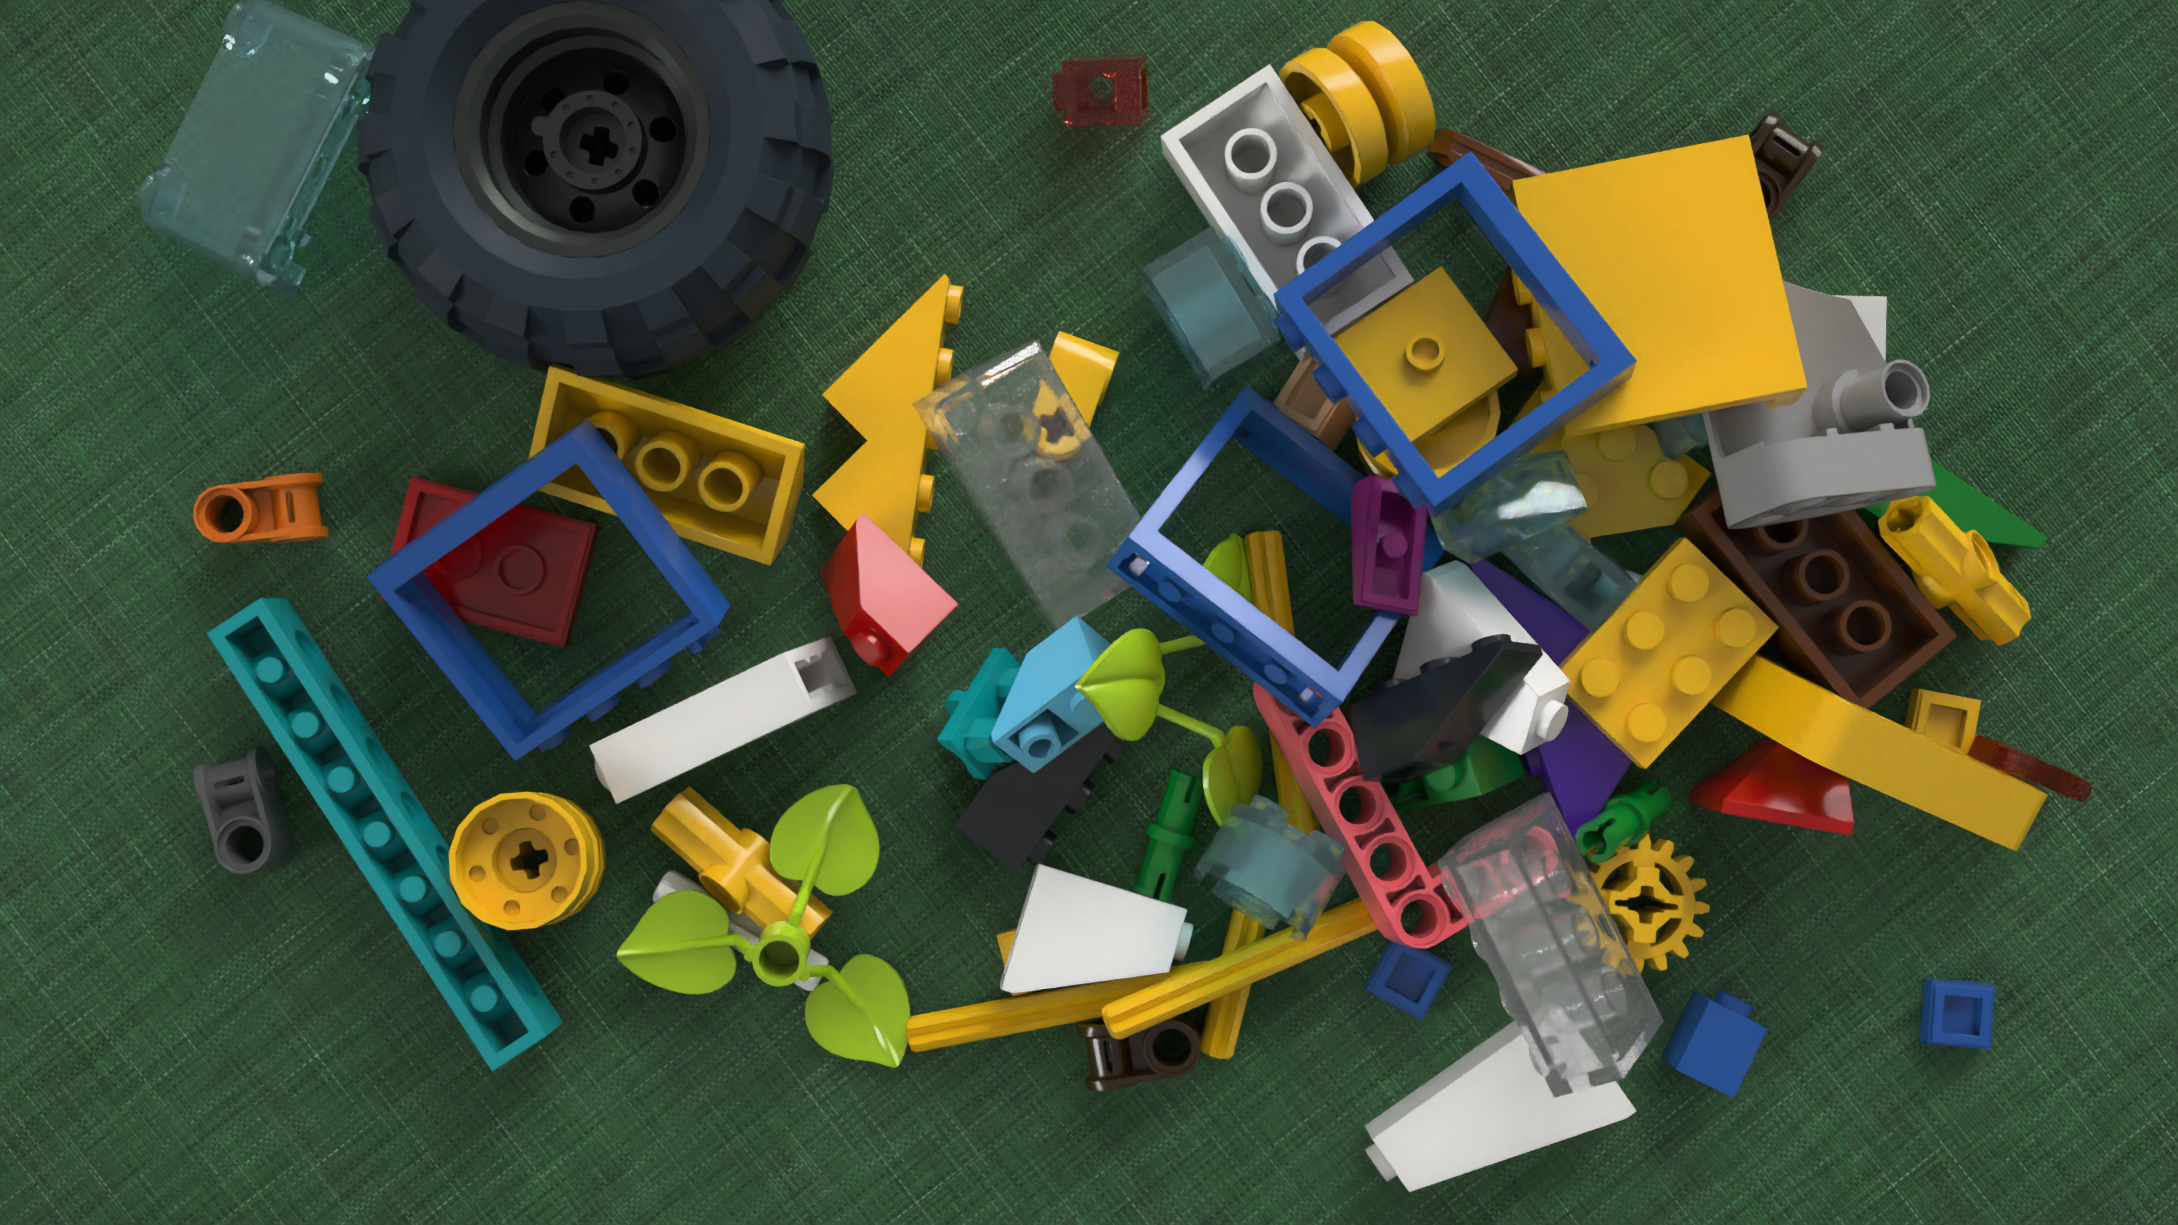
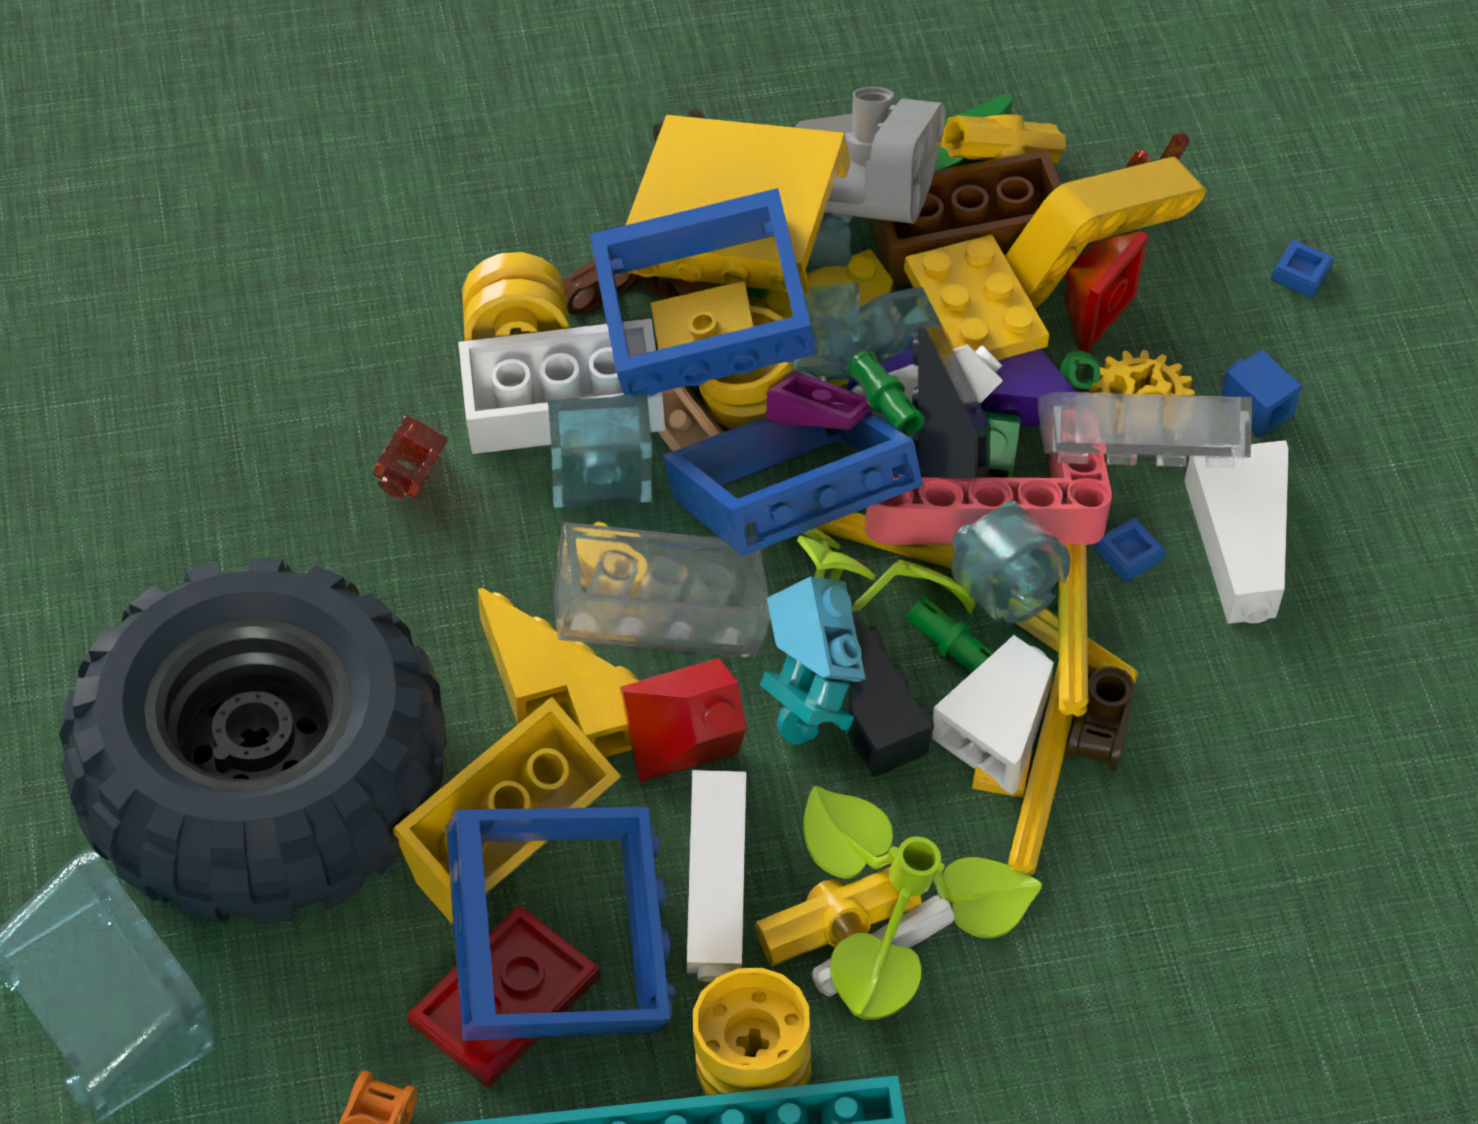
camera: 70 degrees left, 35 degrees down
(1421, 625) = (885, 393): none -> green pin

